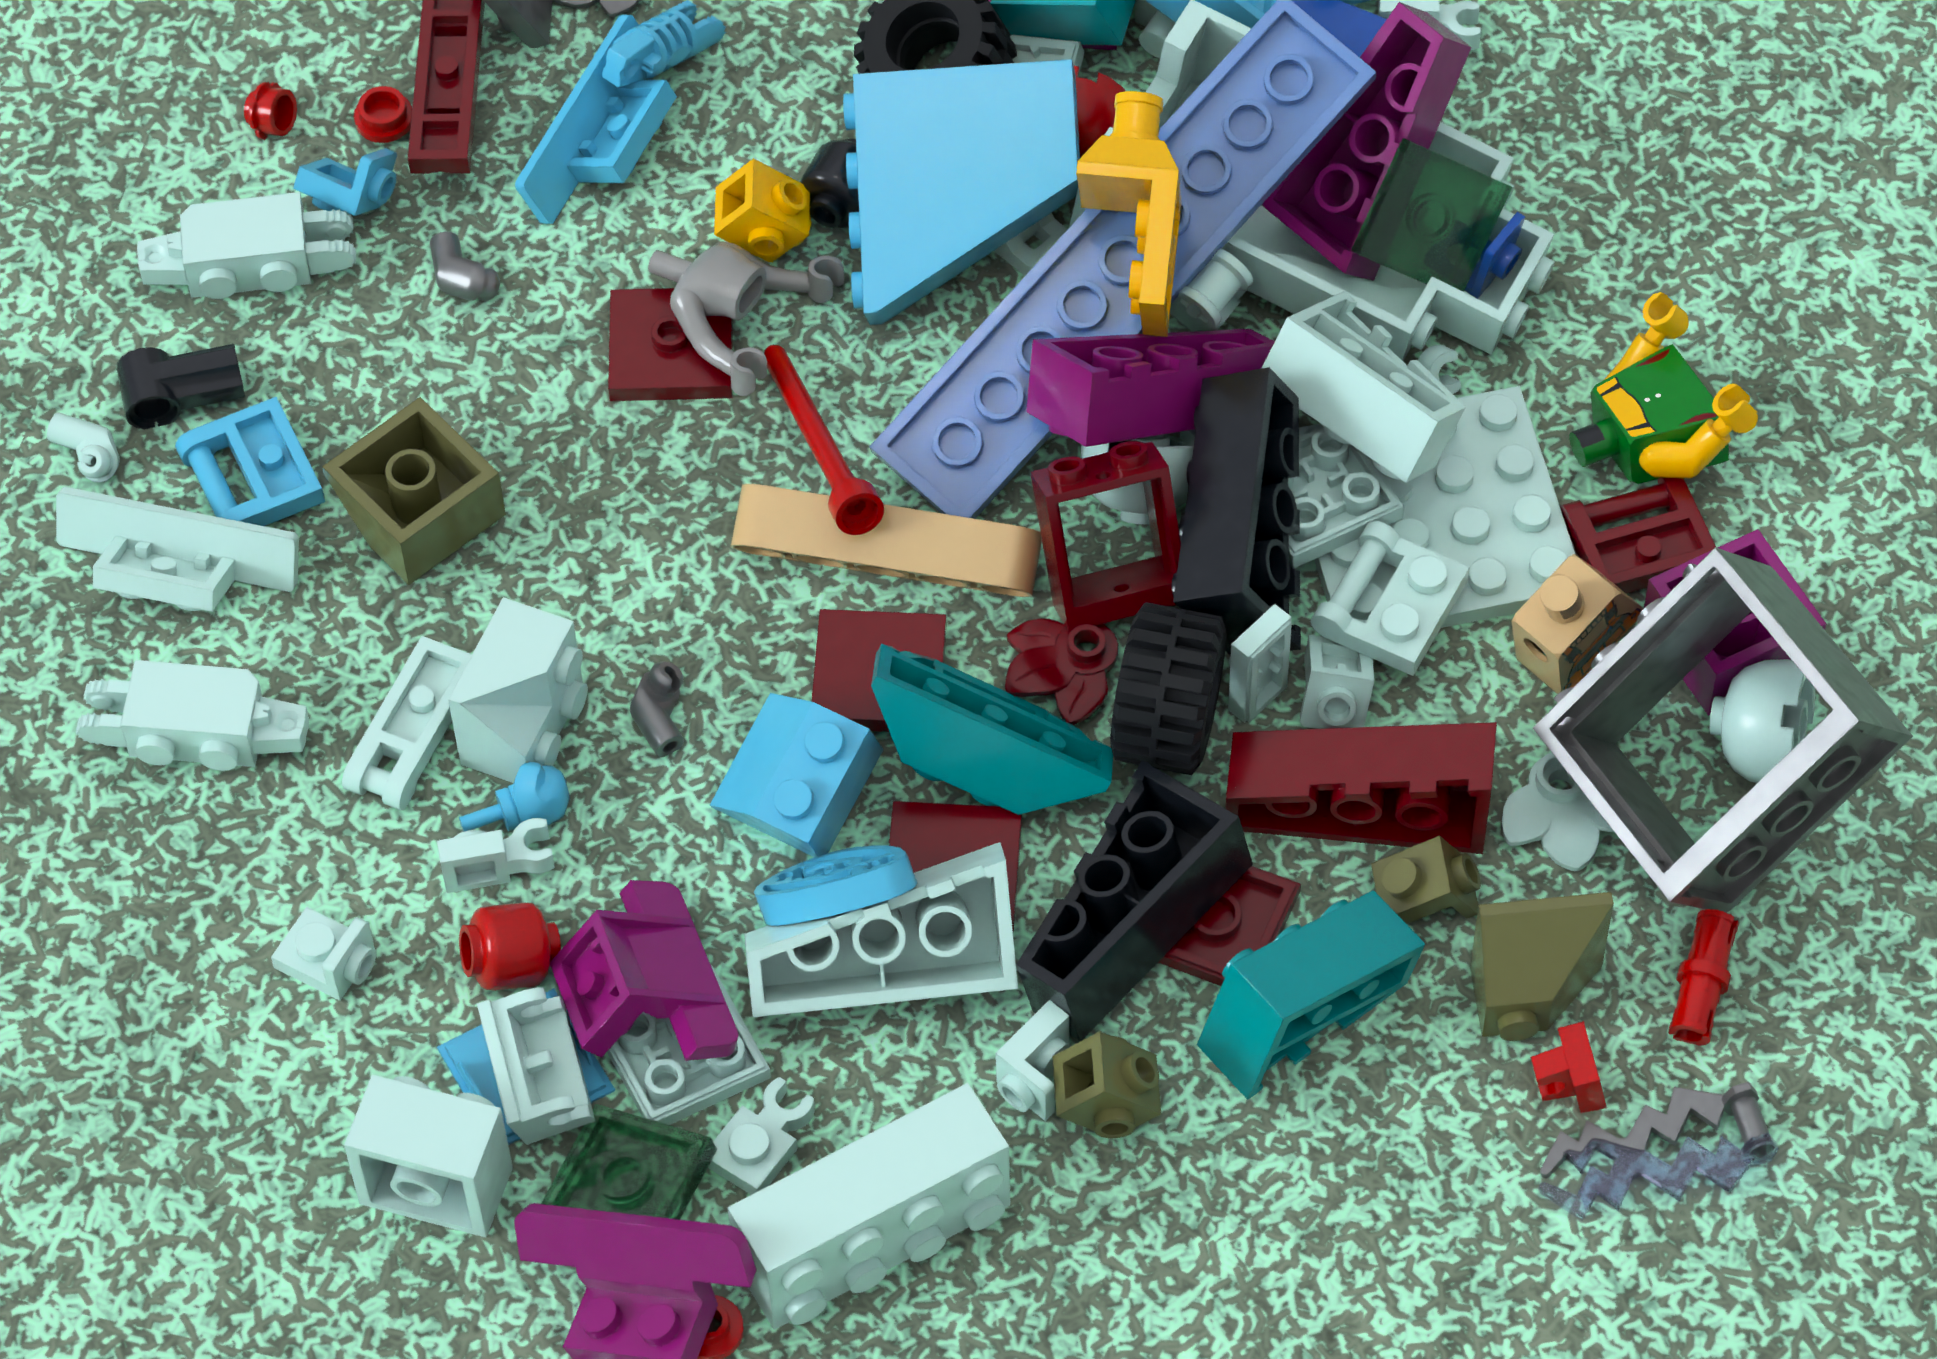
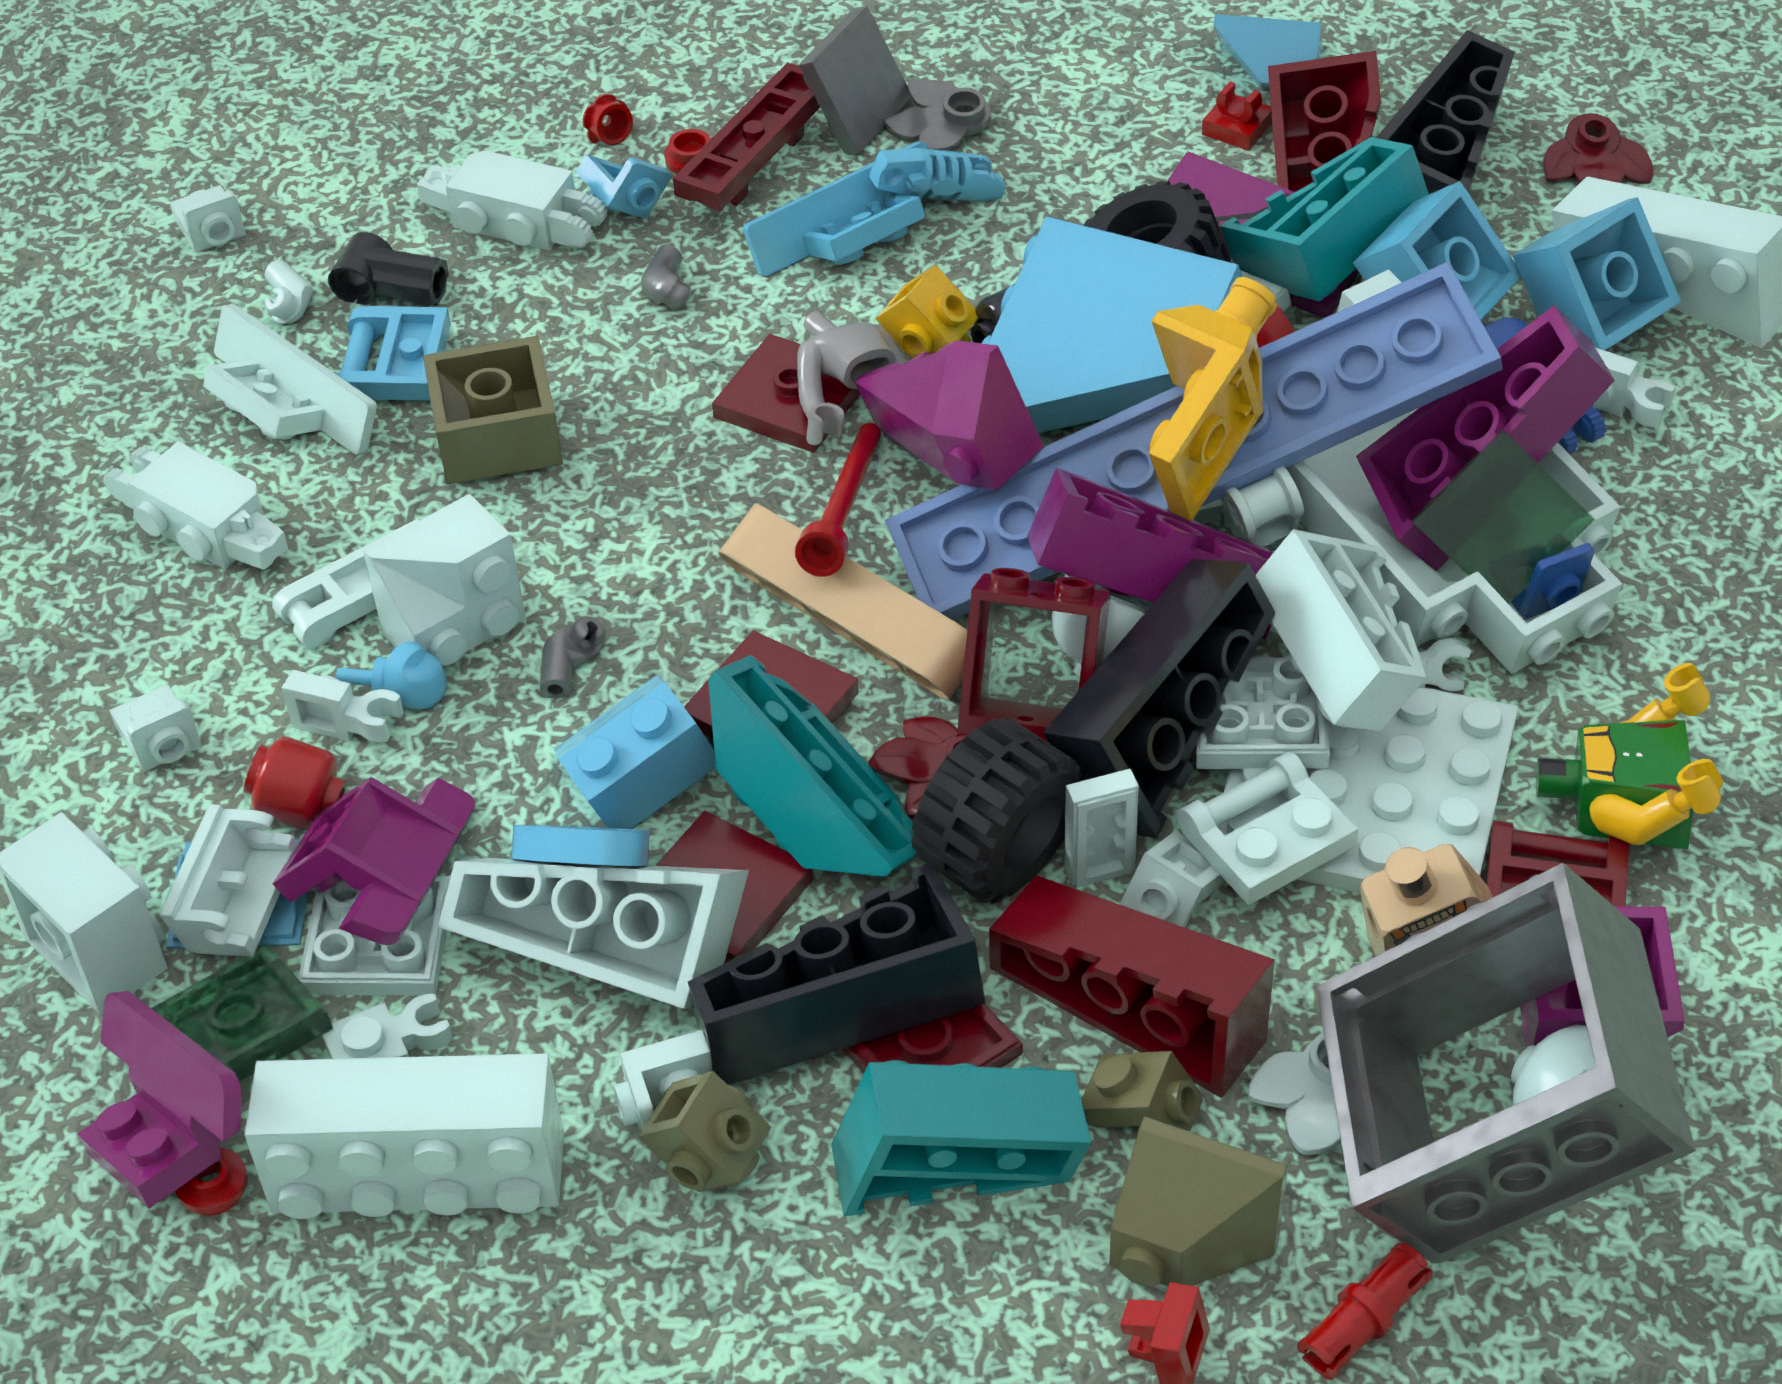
camera: 30 degrees right, 10 degrees down
(890, 317) = (955, 412): none -> magenta wedge

